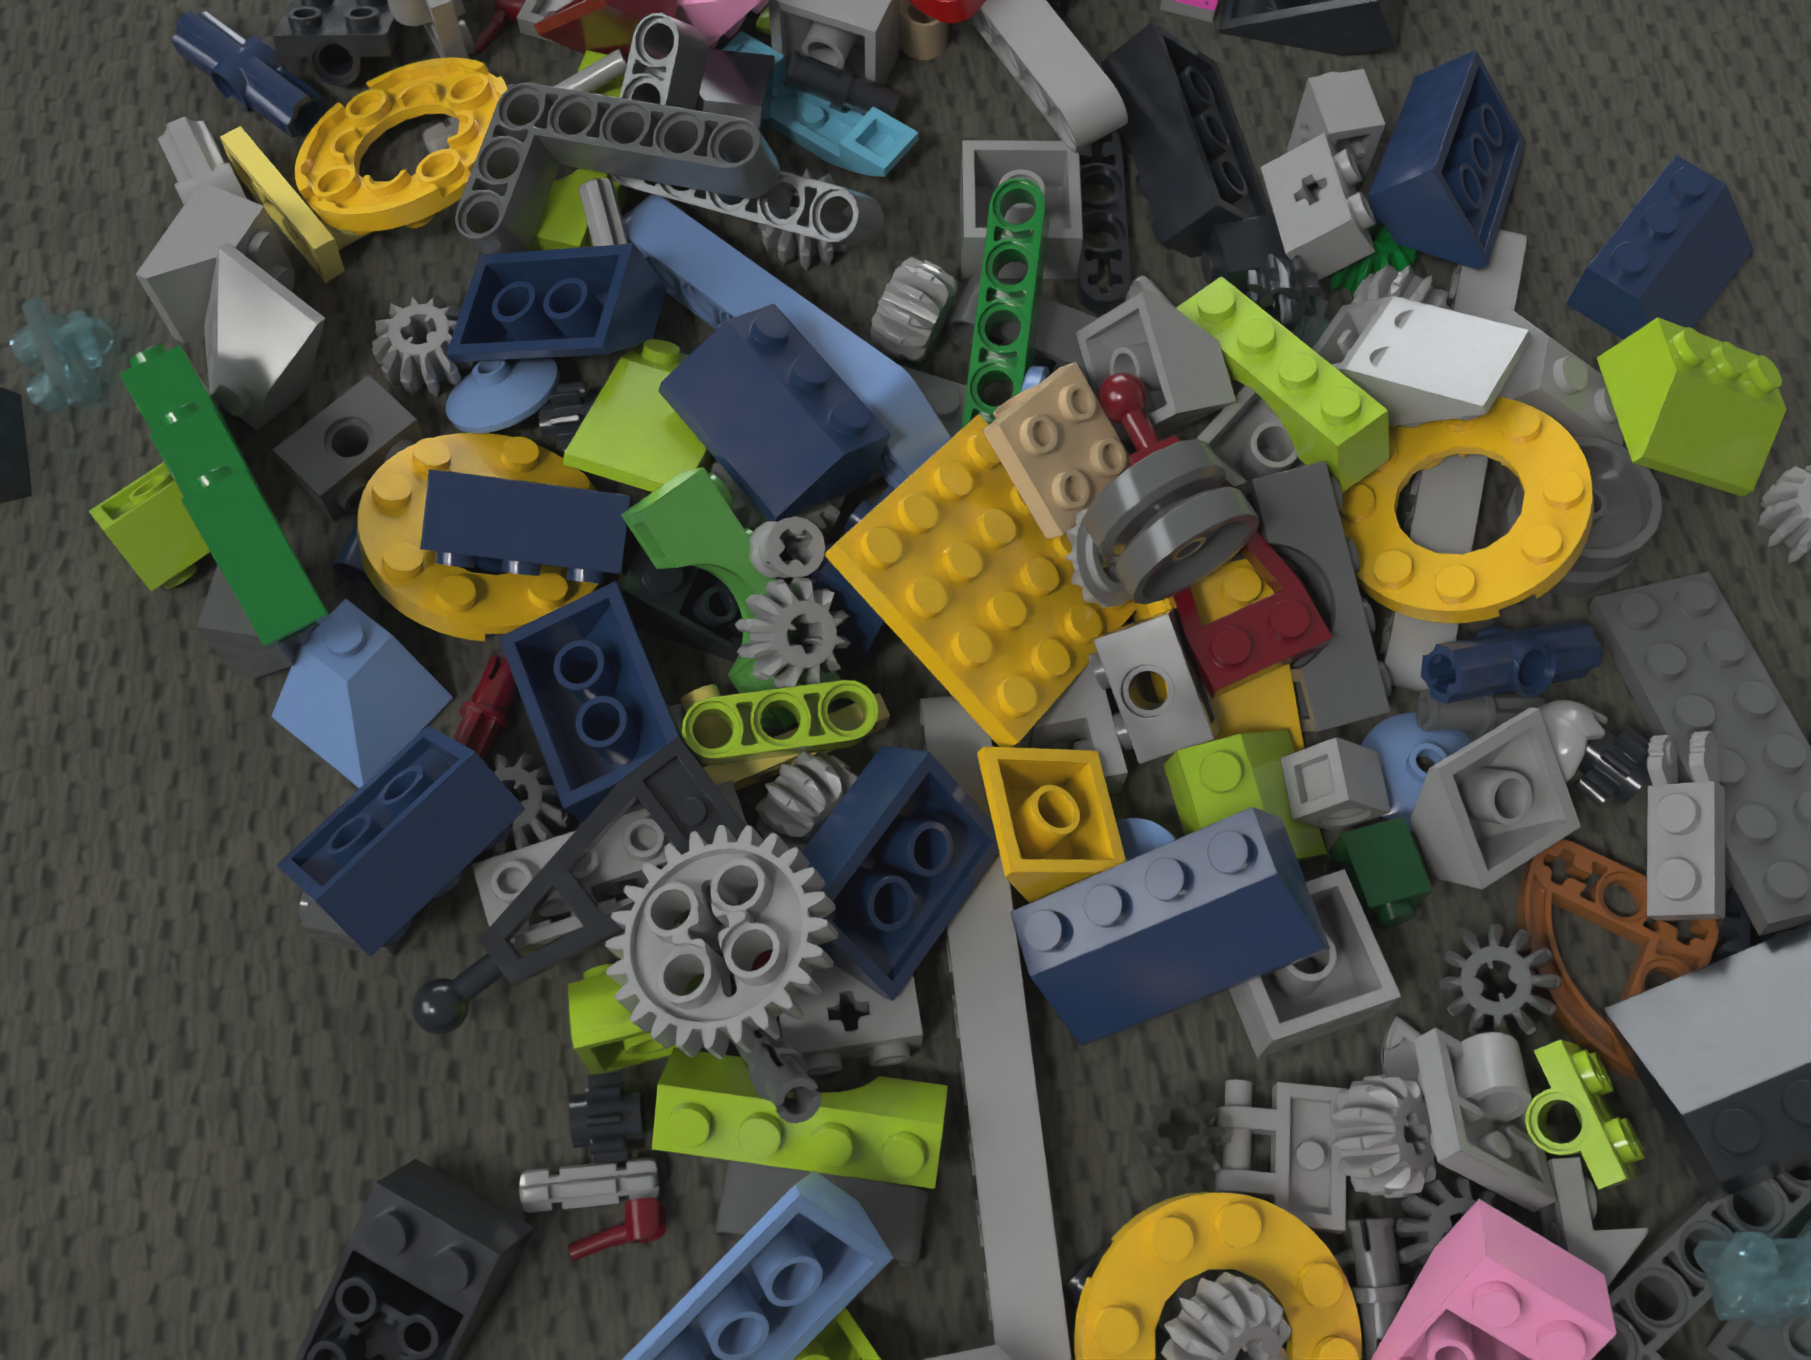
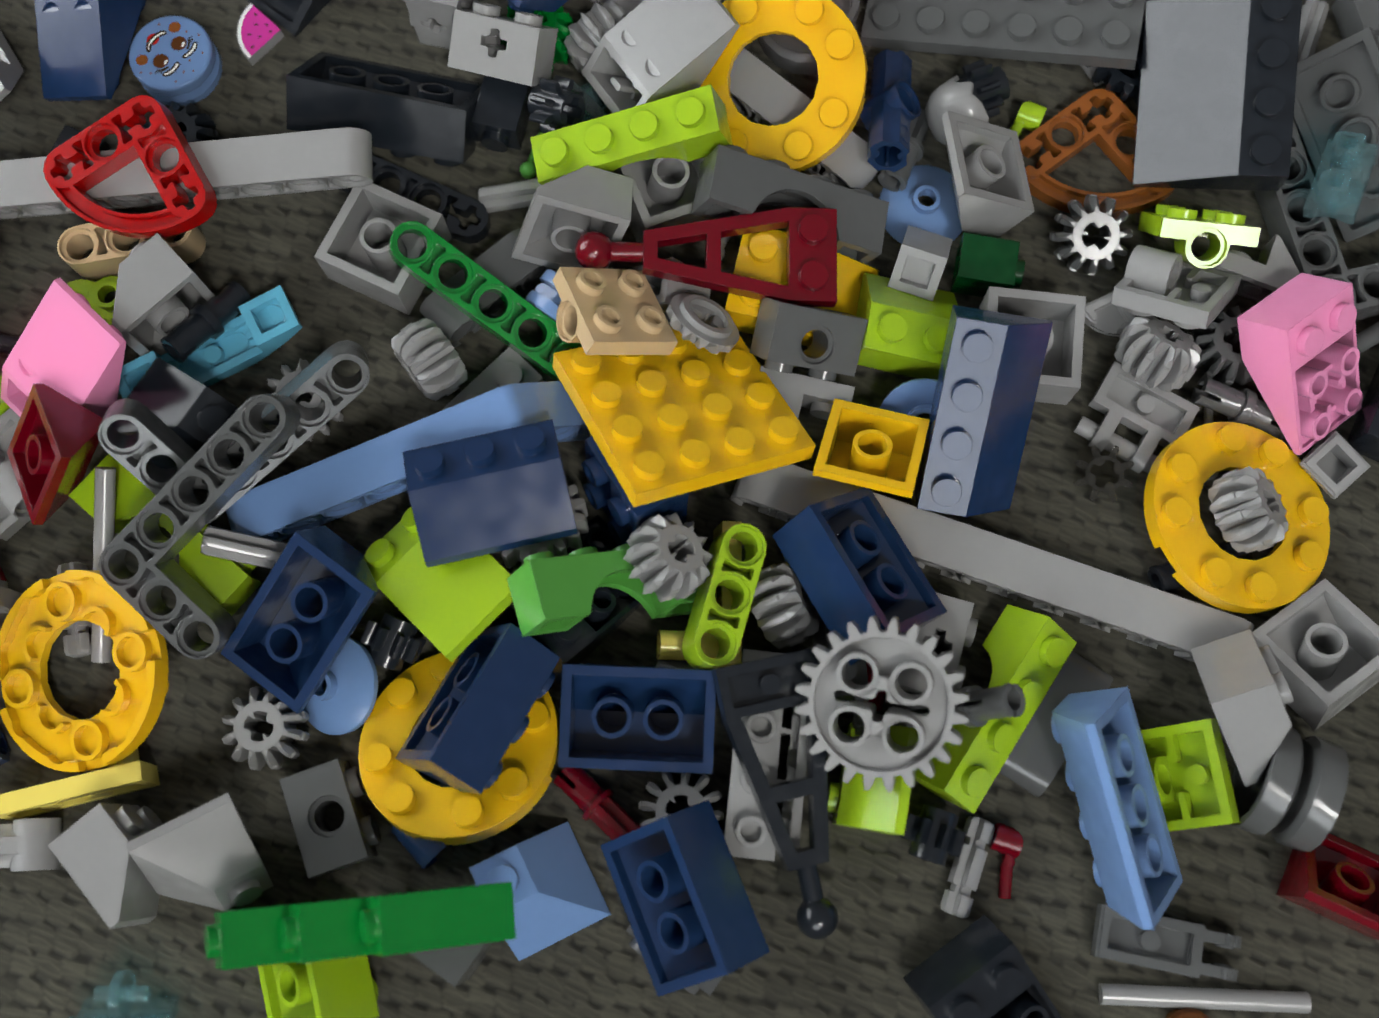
camera: 60 degrees left, 10 degrees up
(806, 550) = (616, 528): light grey bush -> none
(1170, 521) = (727, 265): dark grey wheel -> none
(1617, 842) = (1028, 117): none -> lime hand
(1685, 832) = (1053, 73): light grey hinge -> none

